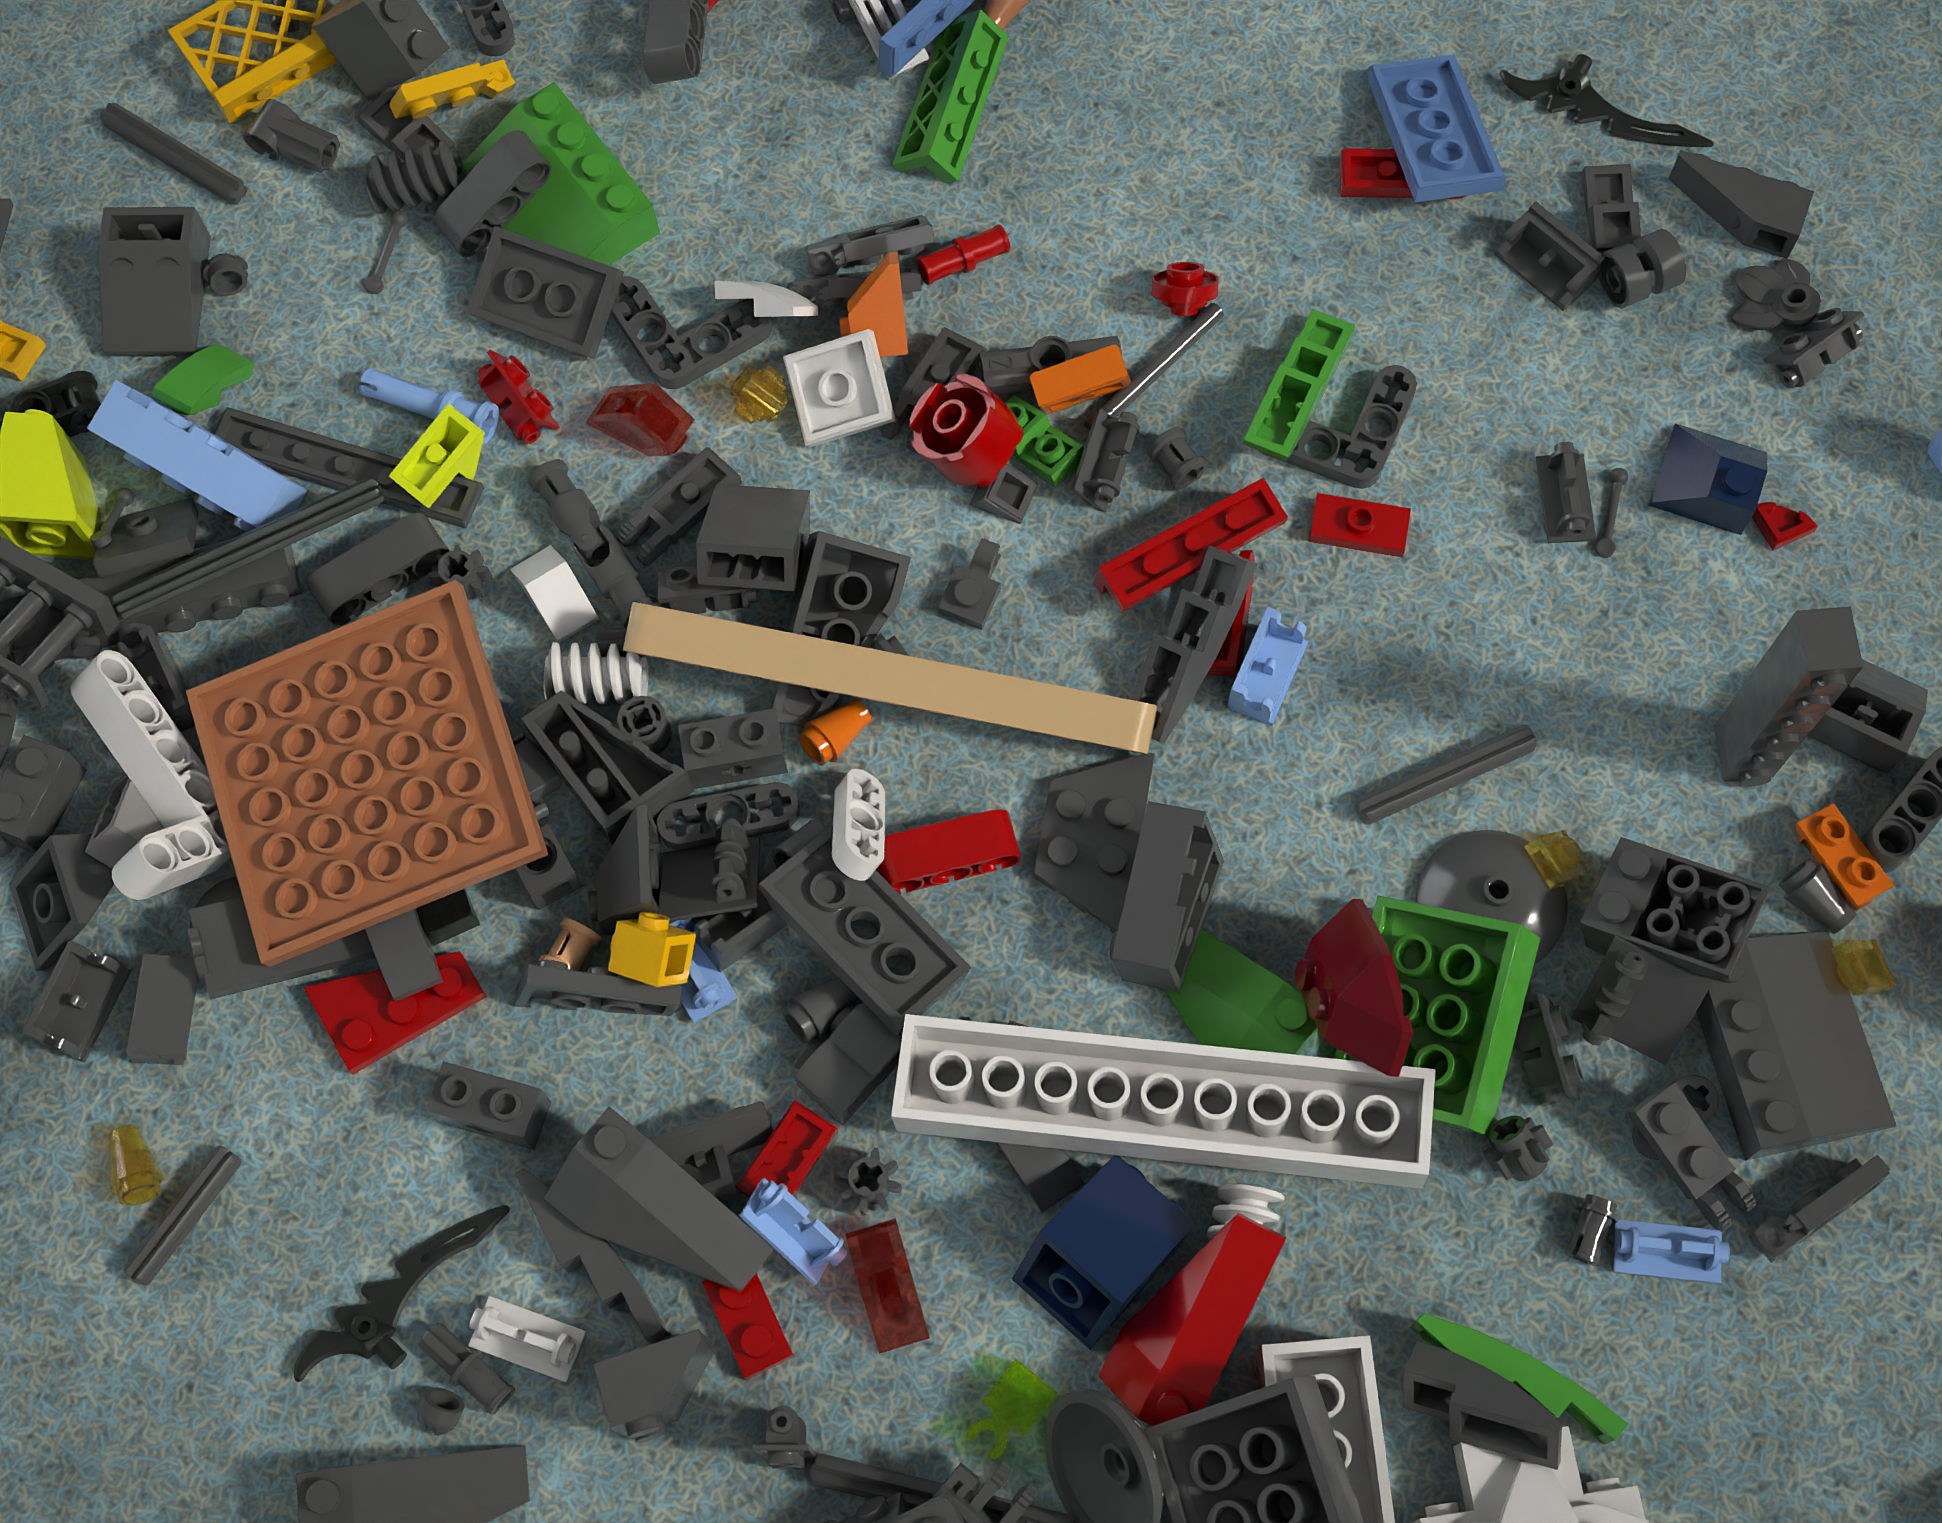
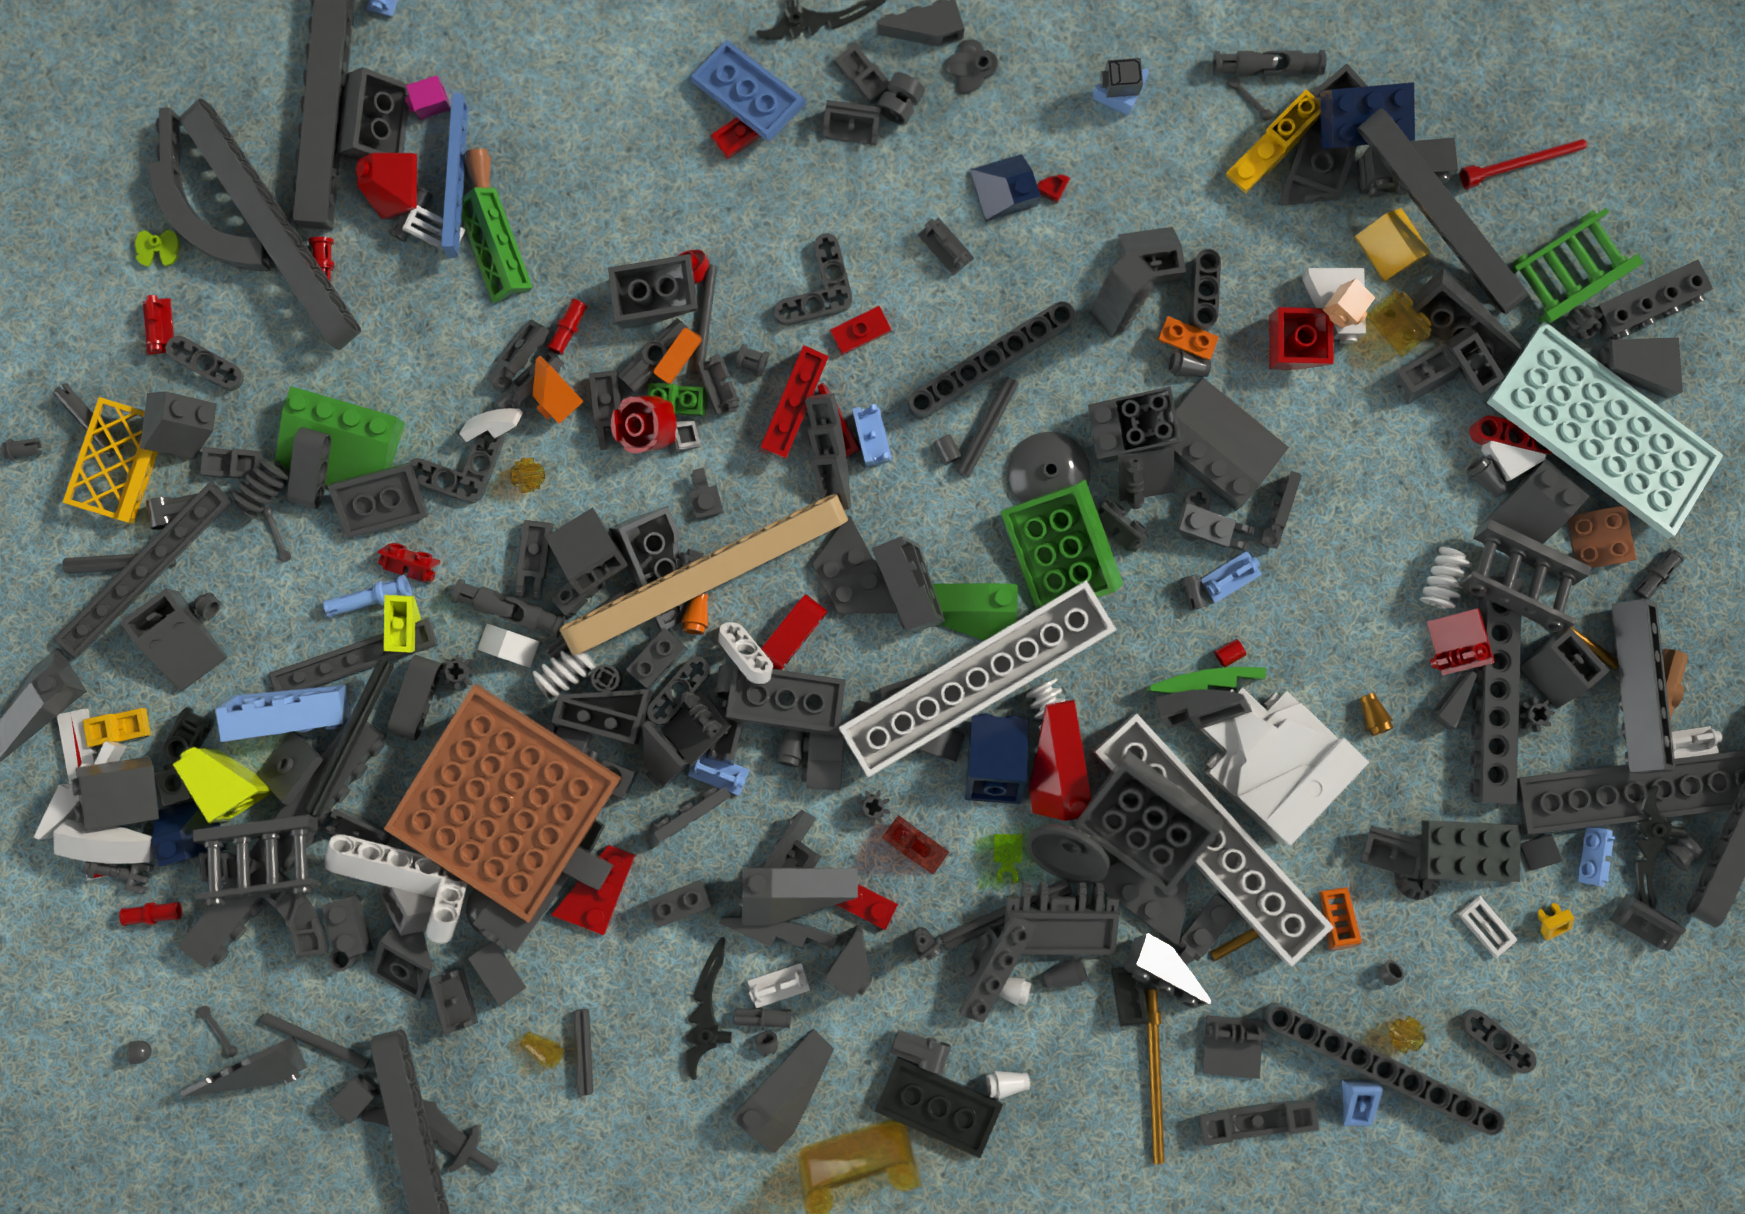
camera: 40 degrees left, 15 degrees up
(102, 538) = (271, 786): dark grey hinge -> none
(192, 175) = (143, 570): none -> dark grey tile
(199, 379) = (245, 669): bright green slope -> none
(454, 87) = (250, 404): yellow hinge -> none
(572, 944) = (658, 806): light nougat bush -> none
(642, 419) = (479, 529): clear red slope -> none
(651, 950) = (700, 782): yellow brick -> none
(785, 1226) = (858, 854): light blue hinge -> none
(790, 1150) = (829, 823): red plate -> none
(839, 388) = (564, 444): white tile -> none
(1108, 276) = (652, 291): none -> dark grey slope
(1299, 385) = (783, 280): bright green slope -> none
(1356, 990) = (1026, 569): dark red wedge -> none
(1364, 763) = (947, 449): none -> dark grey hinge
(1518, 1148) = (1139, 580): dark grey gear -> none
(1539, 674) = (997, 348): none -> dark grey beam
(1558, 858) = (1065, 432): clear yellow plate -> none
(1586, 1365) = (1230, 653): none -> red hinge
(1605, 547) = (981, 257): dark grey hinge -> none
(1831, 335) = (1011, 70): dark grey hinge -> none
(1863, 967) = (1230, 385): clear yellow plate -> none

